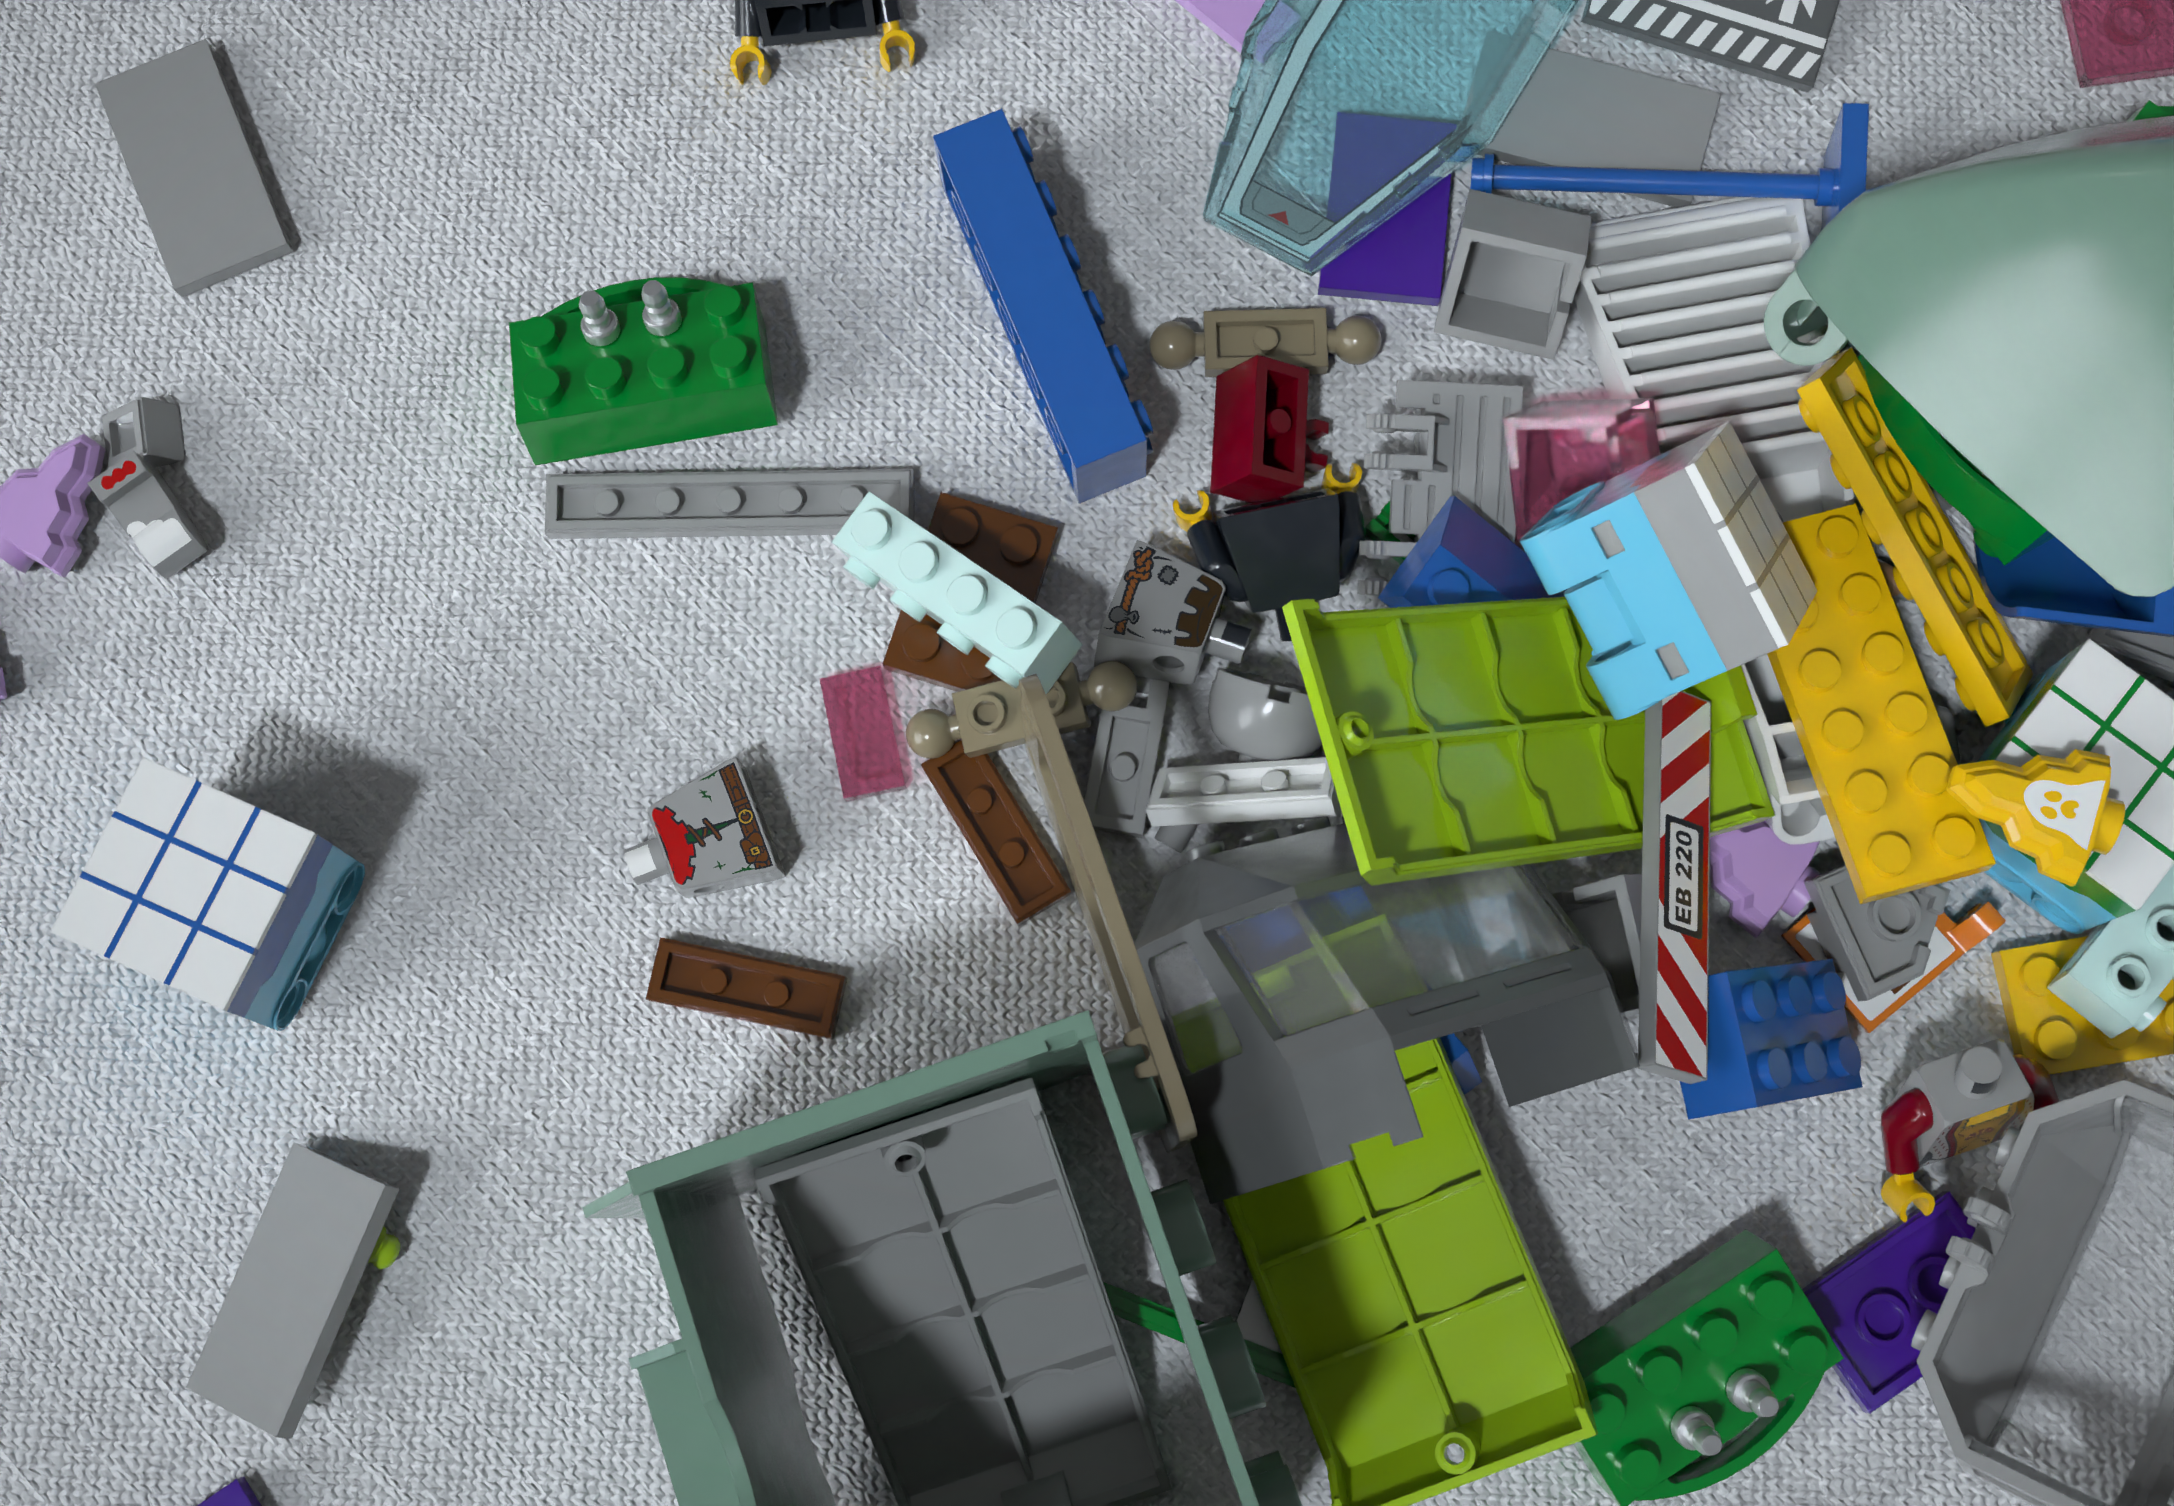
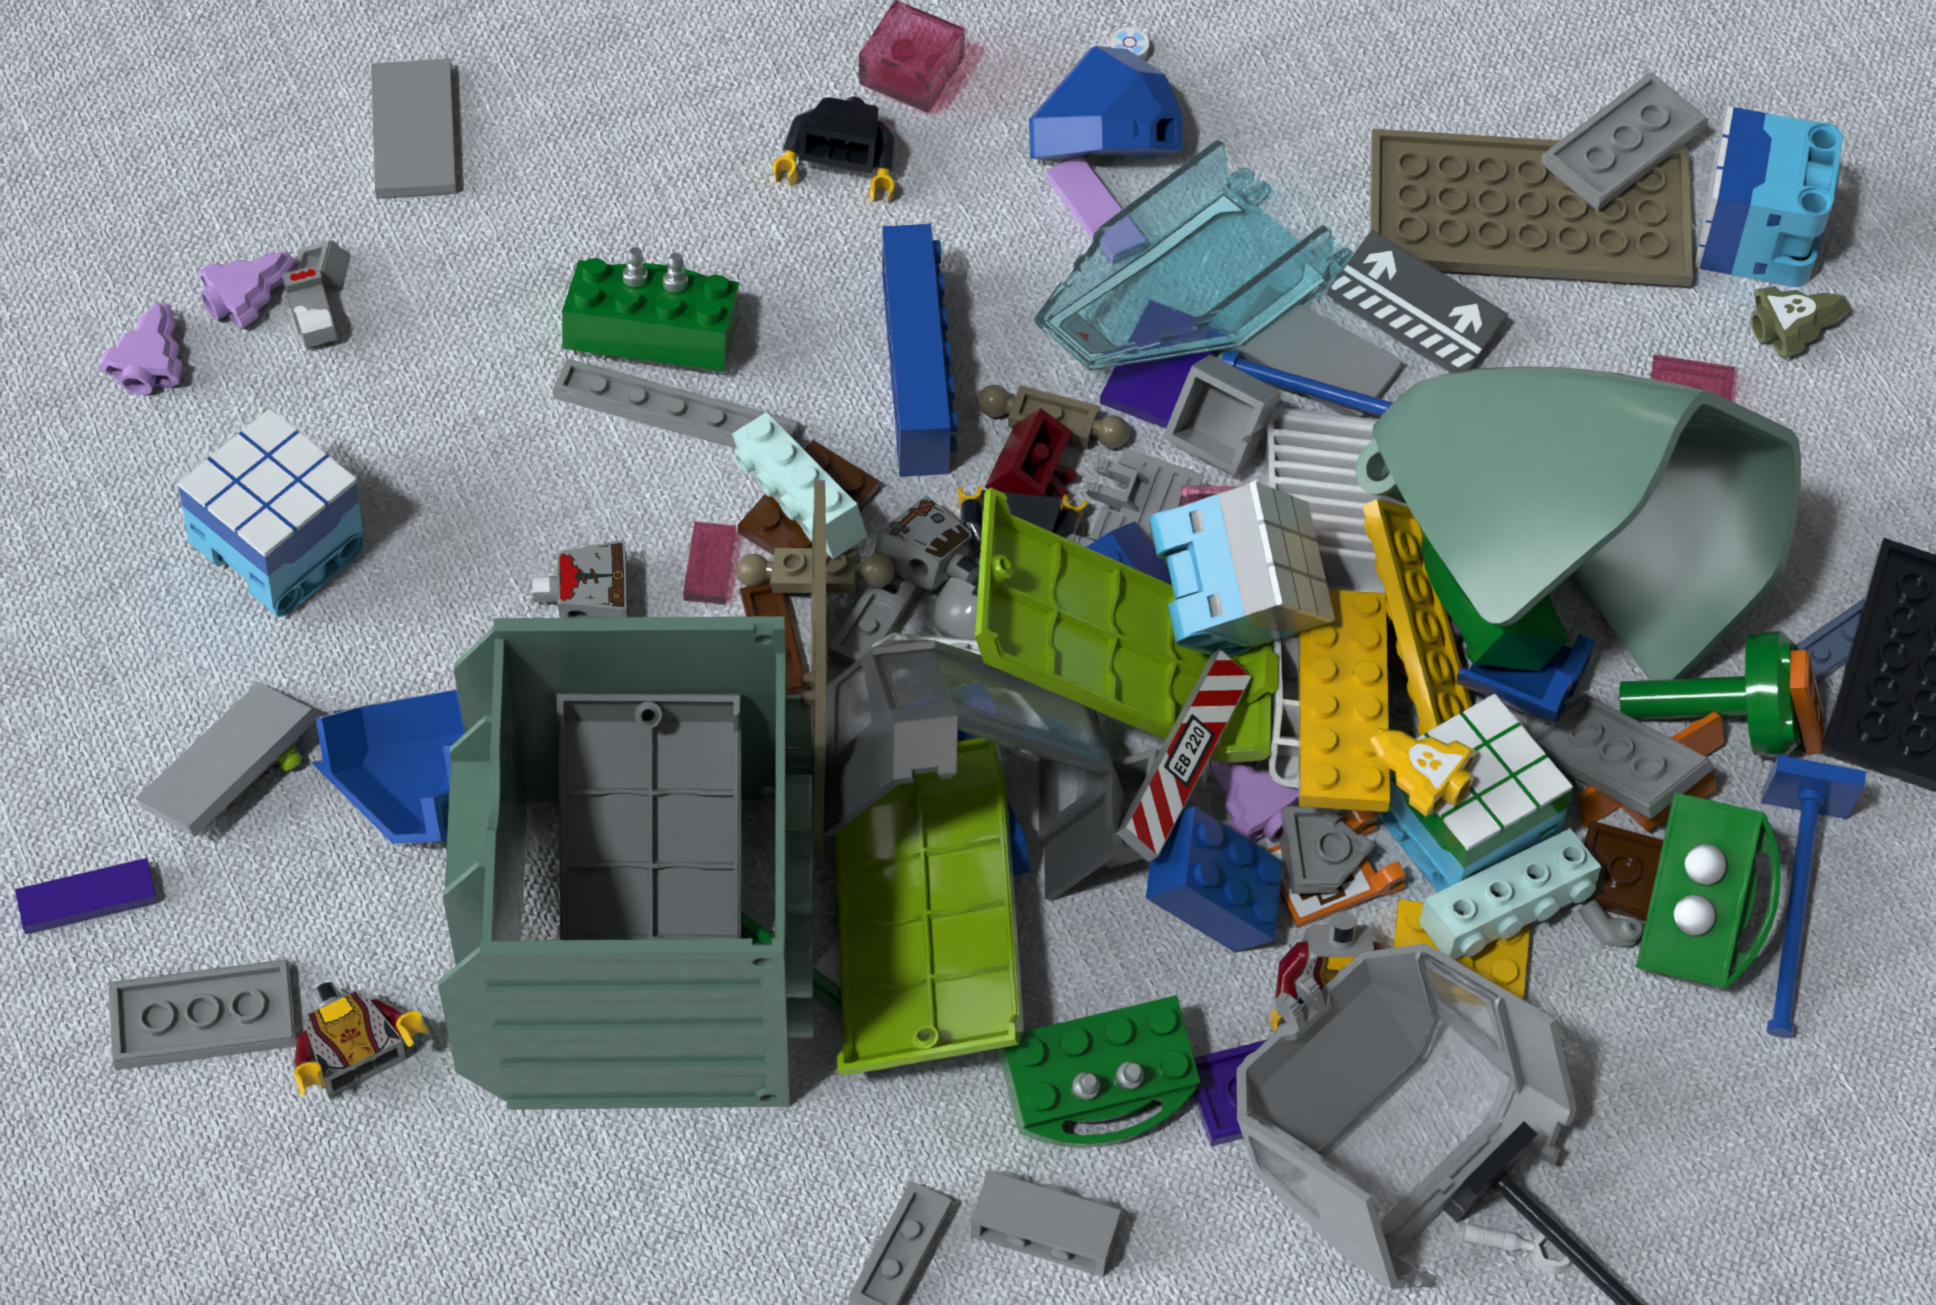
camera: 10 degrees right, 20 degrees down
(511, 1196) = (395, 762): none -> blue panel

